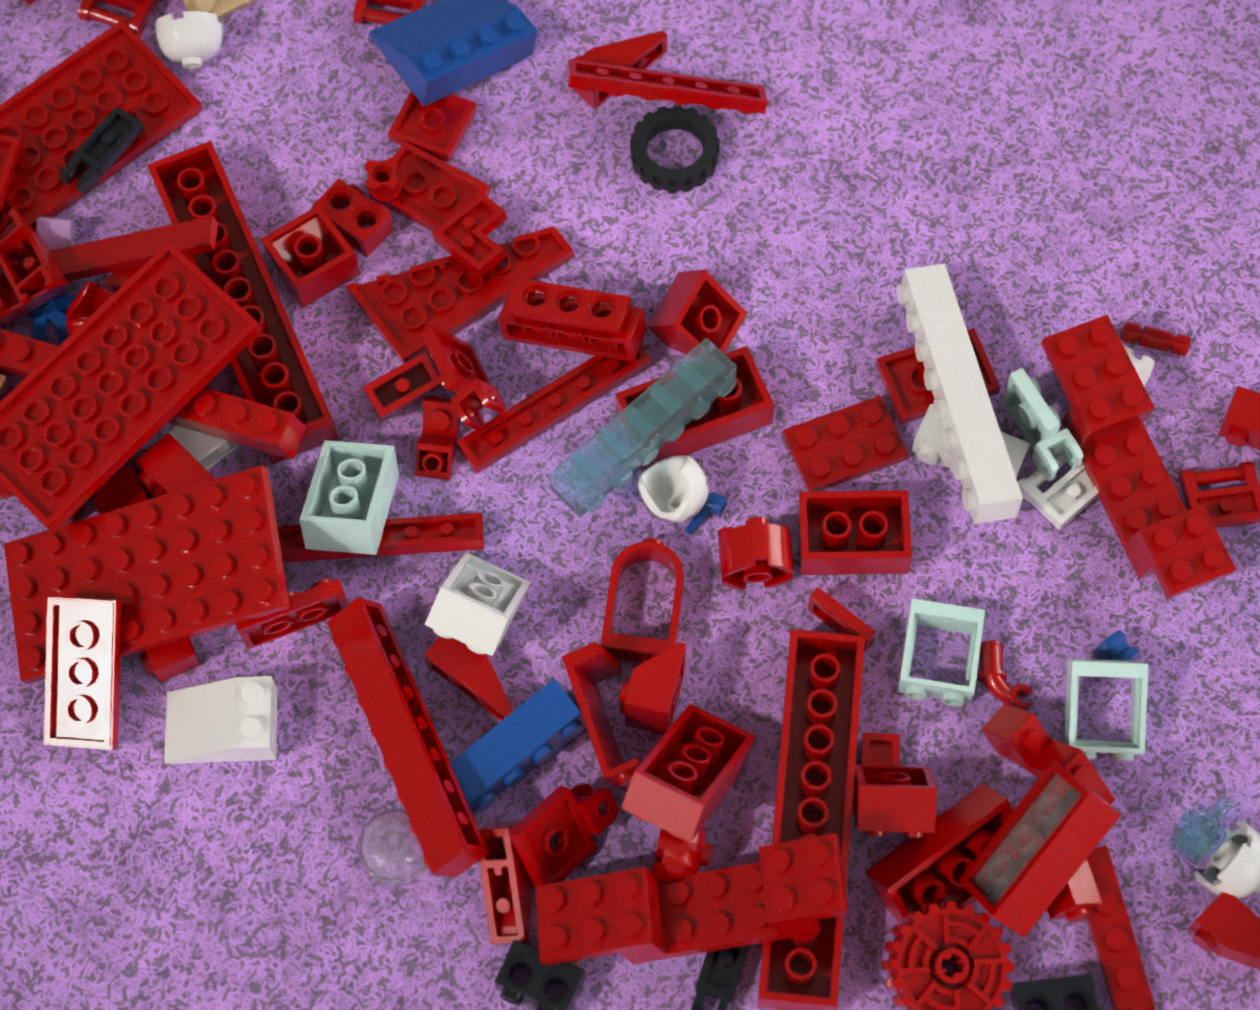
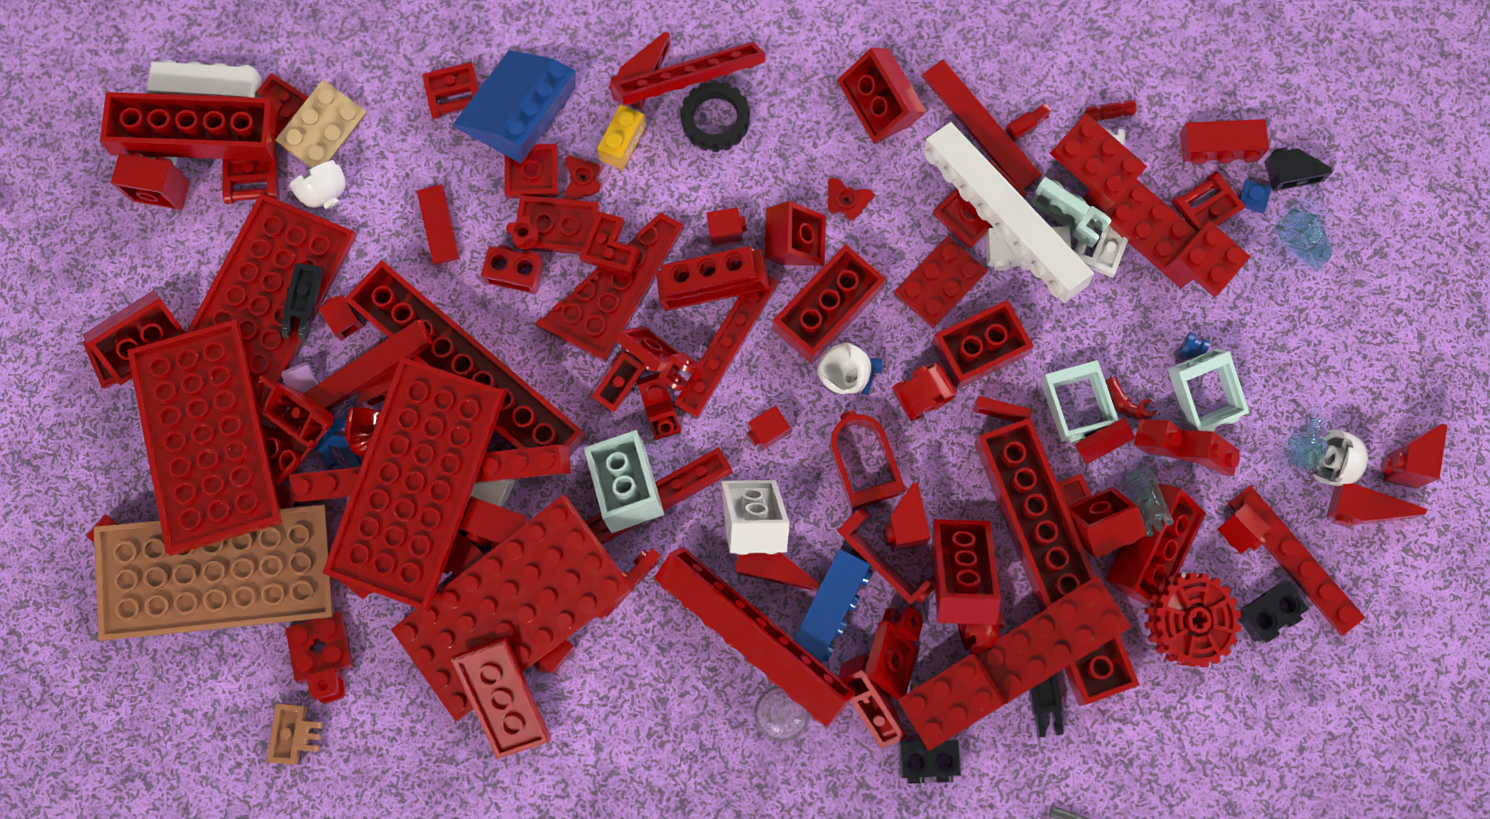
camera: 25 degrees left, 10 degrees up
(135, 188) = (340, 317): none -> red brick
(222, 721) = (614, 684): white slope -> none
(297, 136) = (438, 224): none -> red tile
(311, 256) = (499, 313): red slope -> none
(487, 142) = (578, 187): none -> red animal
(549, 518) = (768, 428): none -> red brick
(553, 126) = (621, 137): none -> yellow brick
(621, 272) = (726, 226): none -> red brick
(643, 428) = (808, 337): clear light blue brick -> none
(792, 313) = (857, 199): none -> red animal
(883, 204) = (881, 94): none -> red slope
(947, 709) = (1105, 440): none -> red tile
(962, 797) = (1148, 497): none -> clear light blue hinge
(987, 288) = (981, 125): none -> red tile
(1039, 848) = (1220, 514): red brick -> none
(1046, 308) = (1027, 122): none -> red bar

